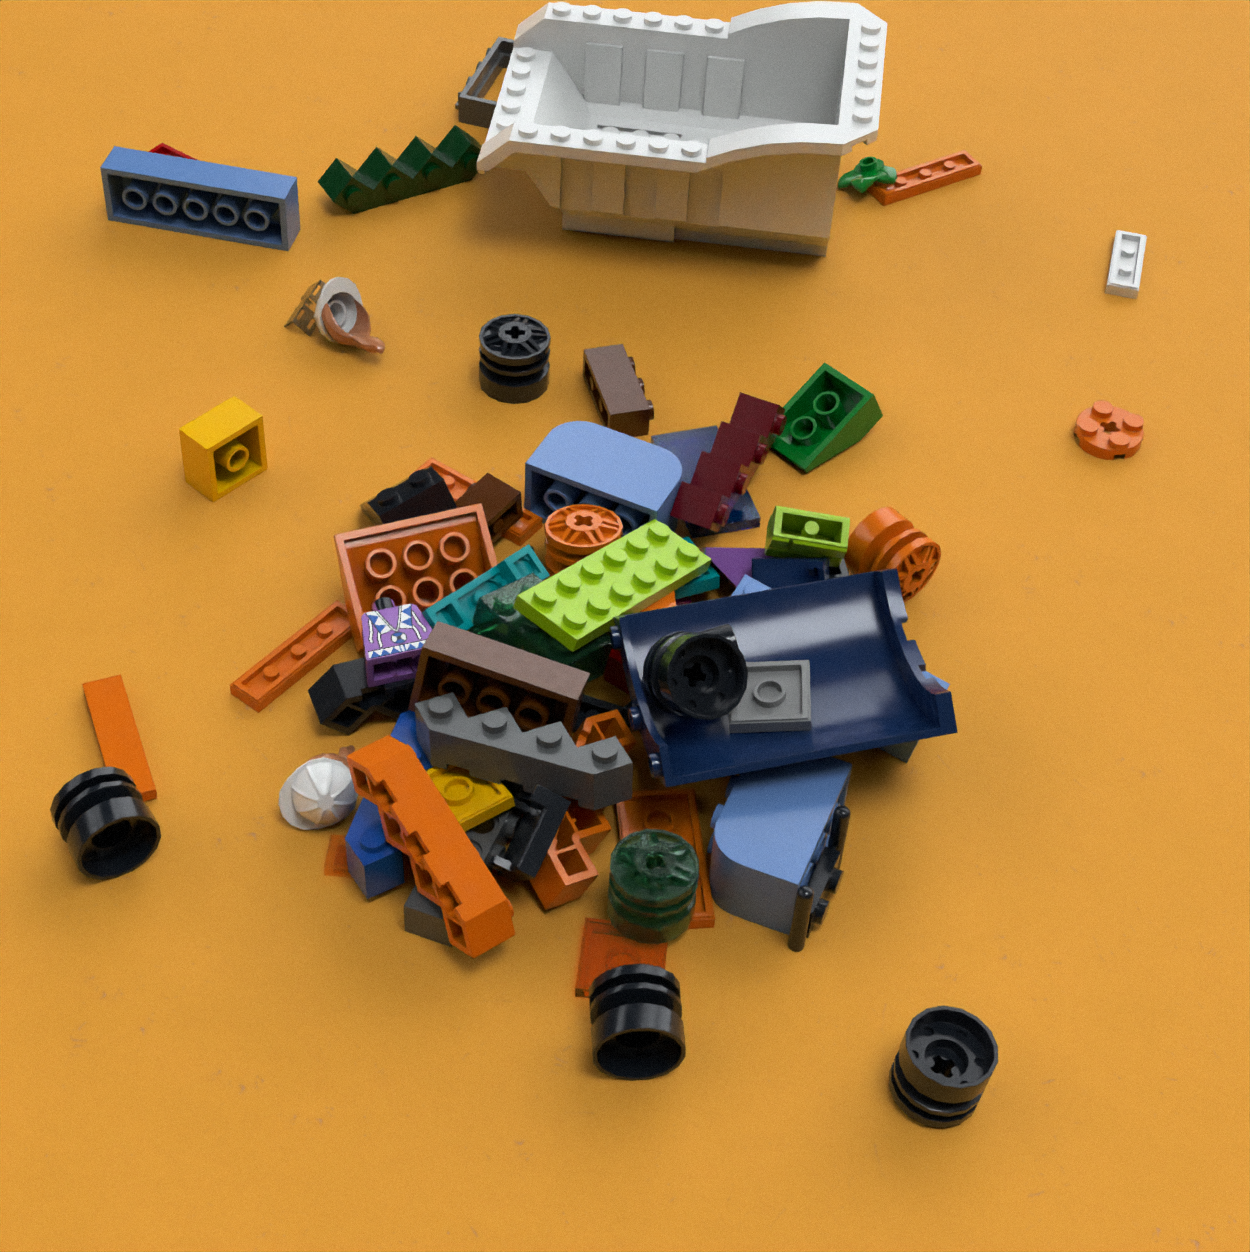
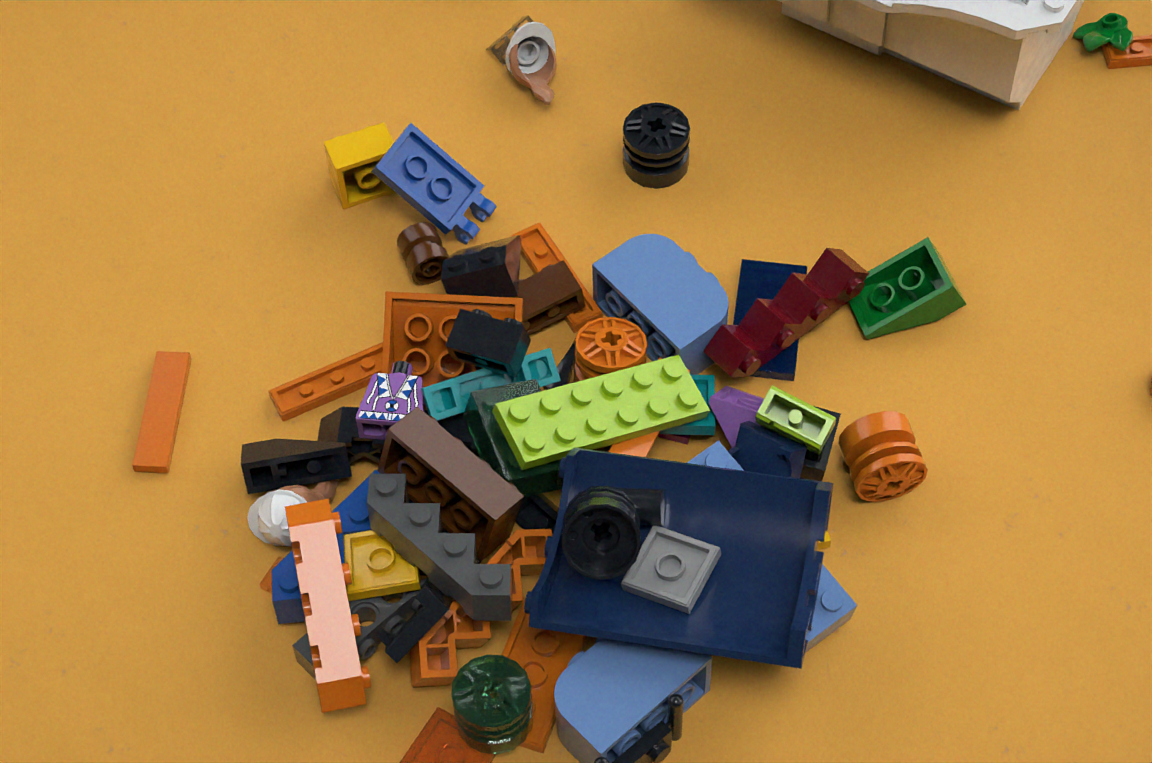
camera: 30 degrees right, 10 degrees up
(105, 823) = (106, 488): black wheel -> none
(294, 739) = (290, 462): none -> black slope
(313, 442) = (434, 184): none -> blue tile
(328, 510) = (423, 252): none -> reddish brown wheel
(469, 550) = (488, 341): none -> black brick
(617, 390) = (735, 204): brick -> none

